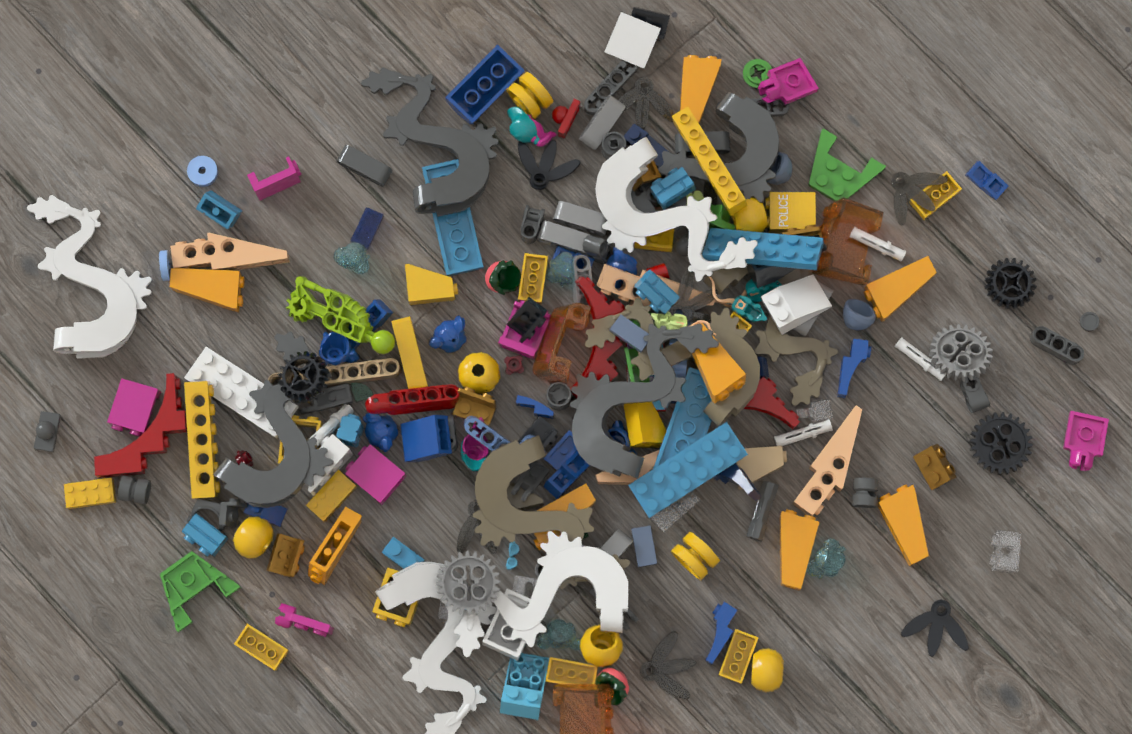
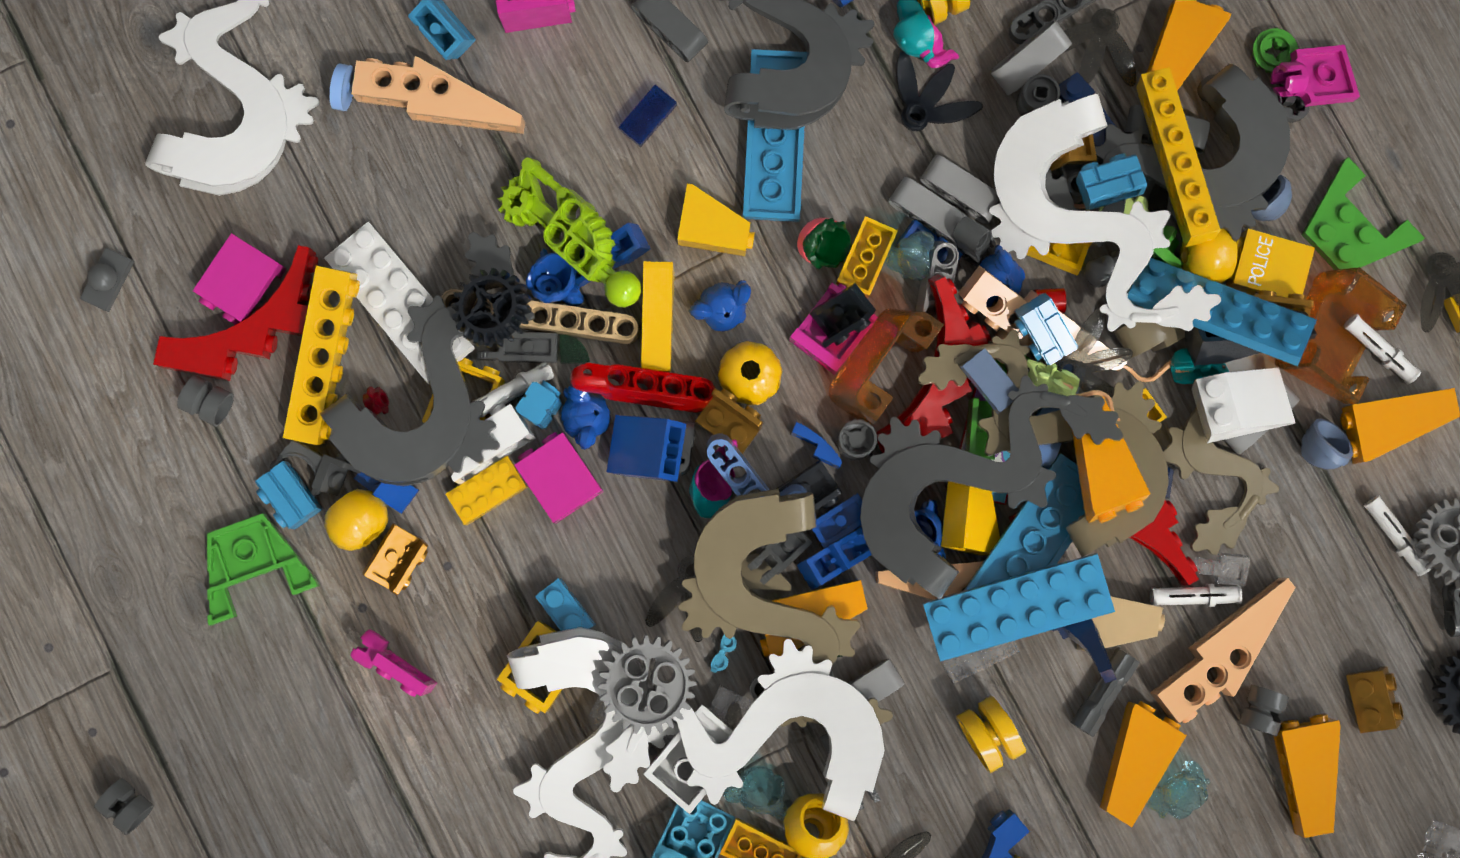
camera: 10 degrees right, 5 degrees up
(90, 493) = (141, 386): yellow piece -> none
(211, 286) = (399, 135): light orange slope -> none
(261, 647) = (323, 682): yellow piece -> none
(333, 546) = (469, 565): light orange slope -> none
(352, 257) = (615, 151): clear light blue hair -> none
(514, 359) = (809, 368): dark red plate -> none
(531, 221) = (888, 173): dark grey piece -> none
(566, 117) = (979, 35): red tile -> none
(644, 546) = (918, 694): sand blue tile -> none
(742, 306) = (1162, 385): teal animal -> none
(859, 353) = (1310, 500): blue slope -> none

